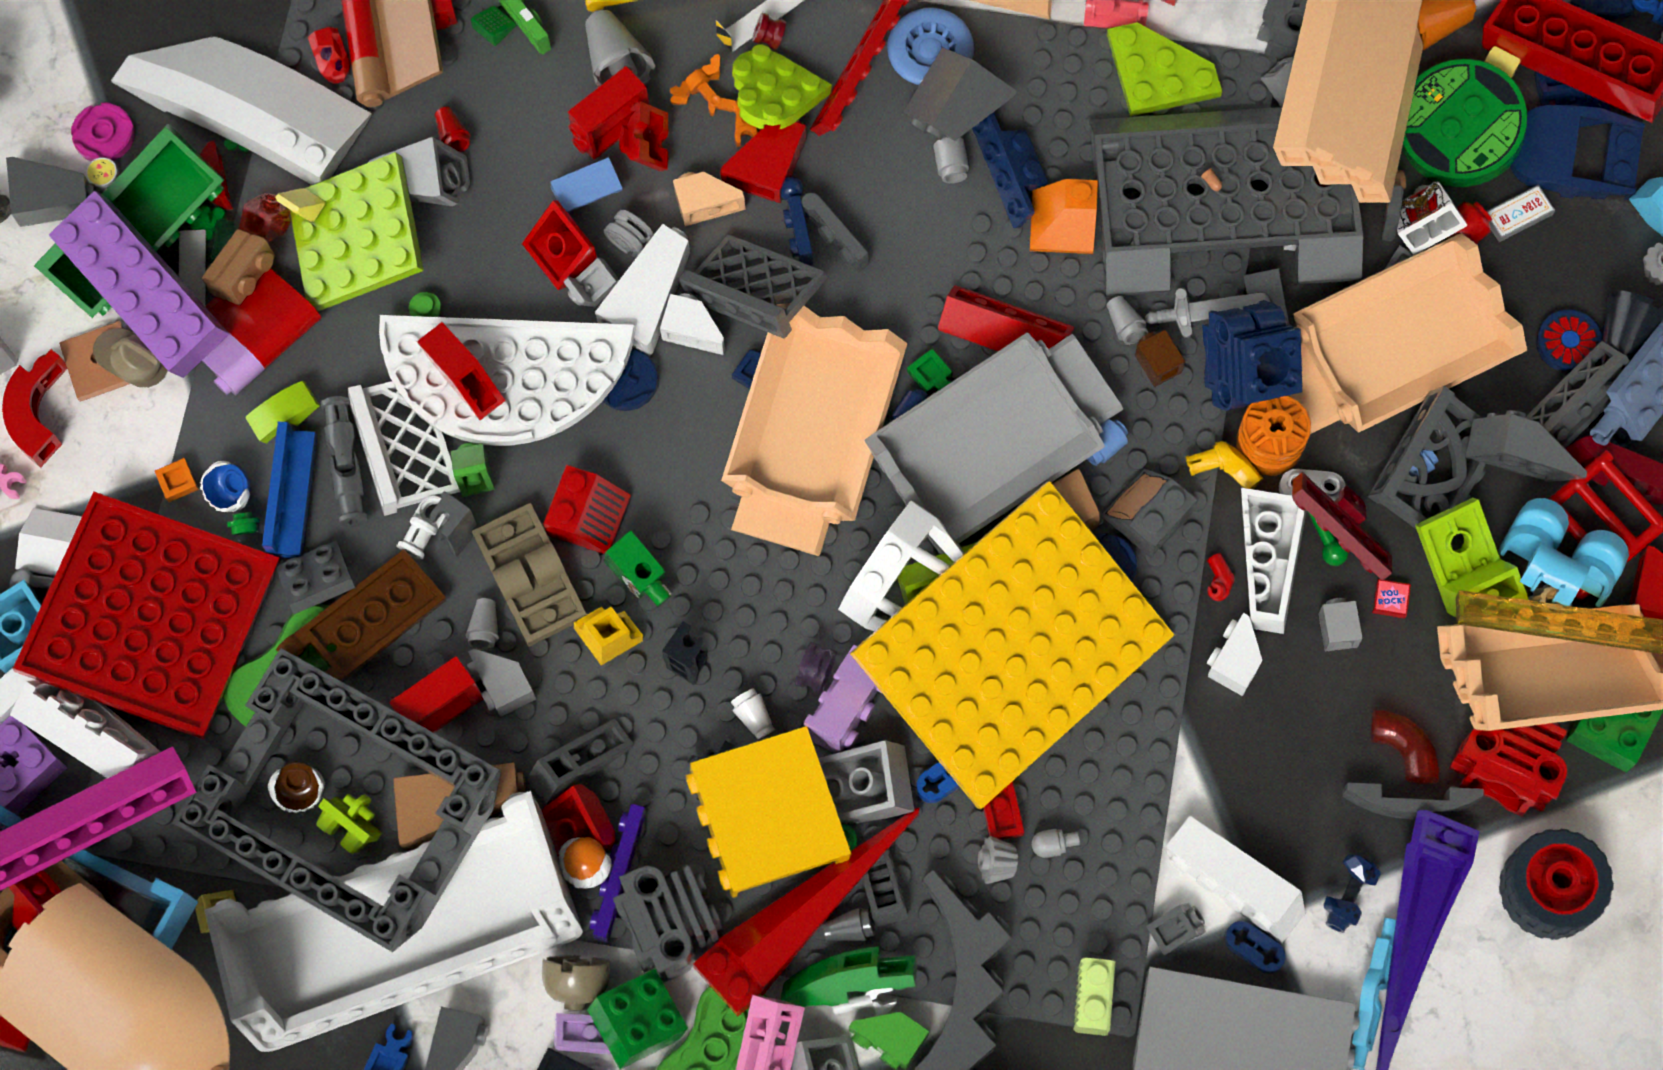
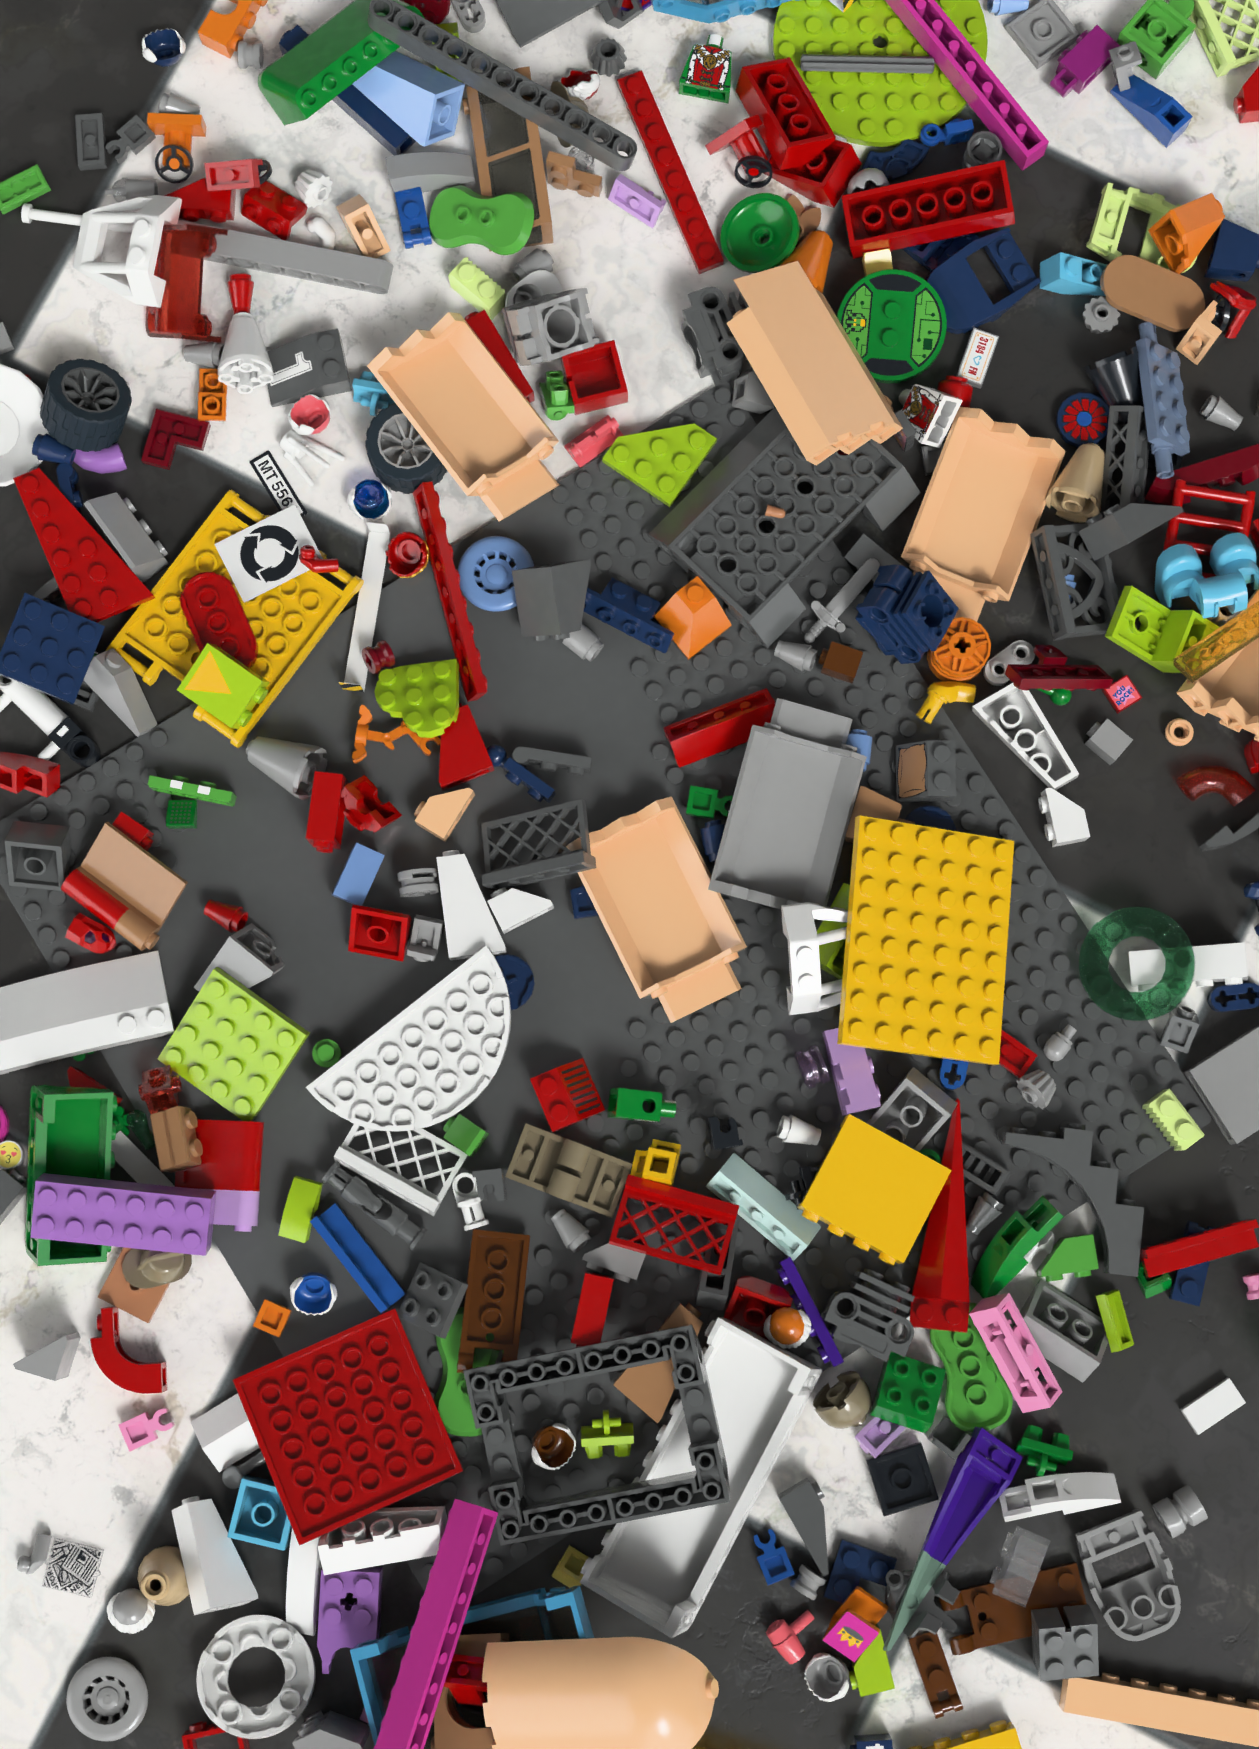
camera: 45 degrees left, 10 degrees up
(243, 524) = (348, 1307): green plate -> none
(302, 203) = (179, 1058): light yellow slope -> none
(461, 370) = (402, 1079): red slope -> none
(598, 685) = (674, 1200): none -> red fence
(663, 749) = (763, 1206): none -> light aqua panel
(1181, 785) = (1137, 923): none -> clear green plate
(1223, 579) = (1008, 776): red arm -> none
(1418, 665) = (1182, 724): none -> light nougat plate
(1513, 384) = (1079, 486): none -> tan cone

